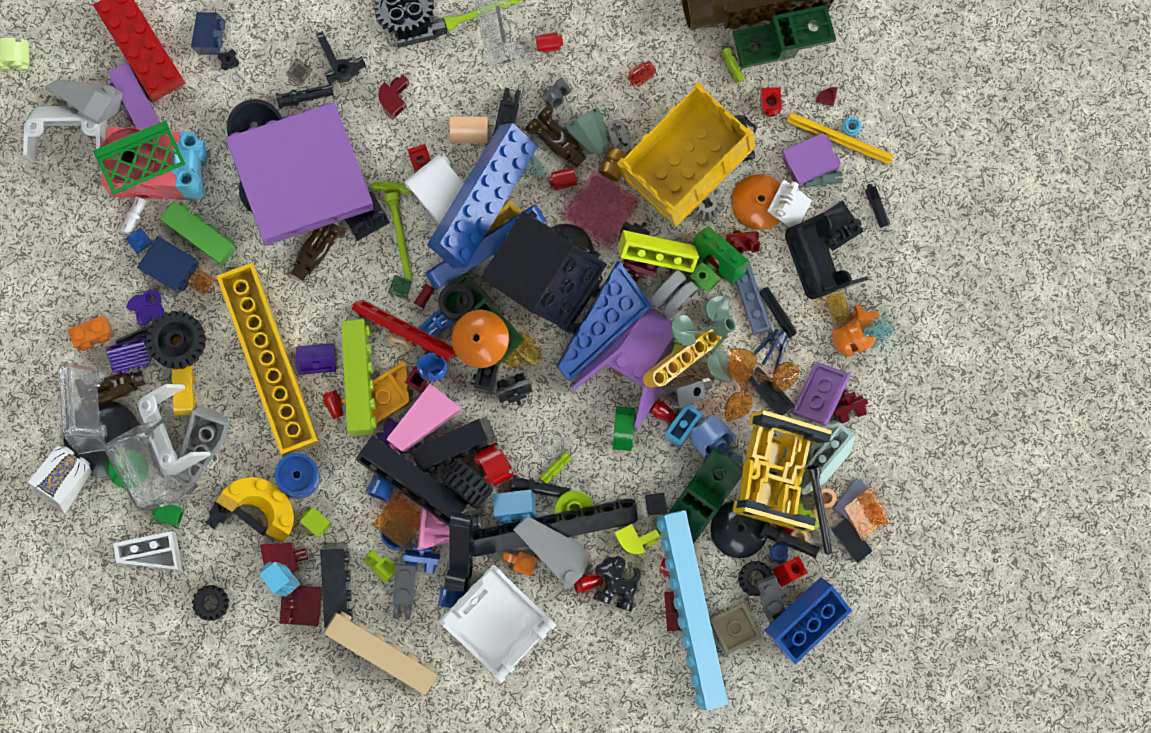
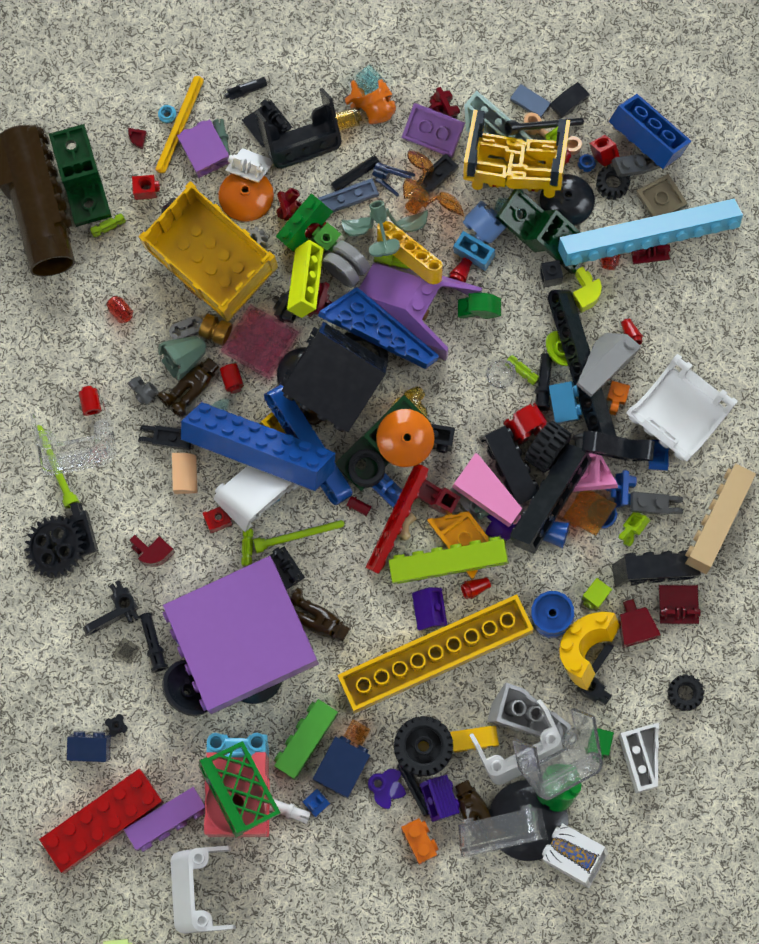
camera: 90 degrees left, 5 degrees down
(91, 100) = (167, 861): light grey wedge -> none
(279, 578) = (664, 609): medium azure brick -> none
(400, 287) = (351, 530): clear green tile -> none
(431, 367) = (437, 482): blue hair -> none
(515, 391) = (445, 405): black hips -> none
(611, 570) = (619, 309): black animal -> none
(686, 390) = (441, 246): dark grey torso -> none
(780, 537) = (574, 157): black pin -> none
(866, 513) = (543, 84): clear orange hinge -> none

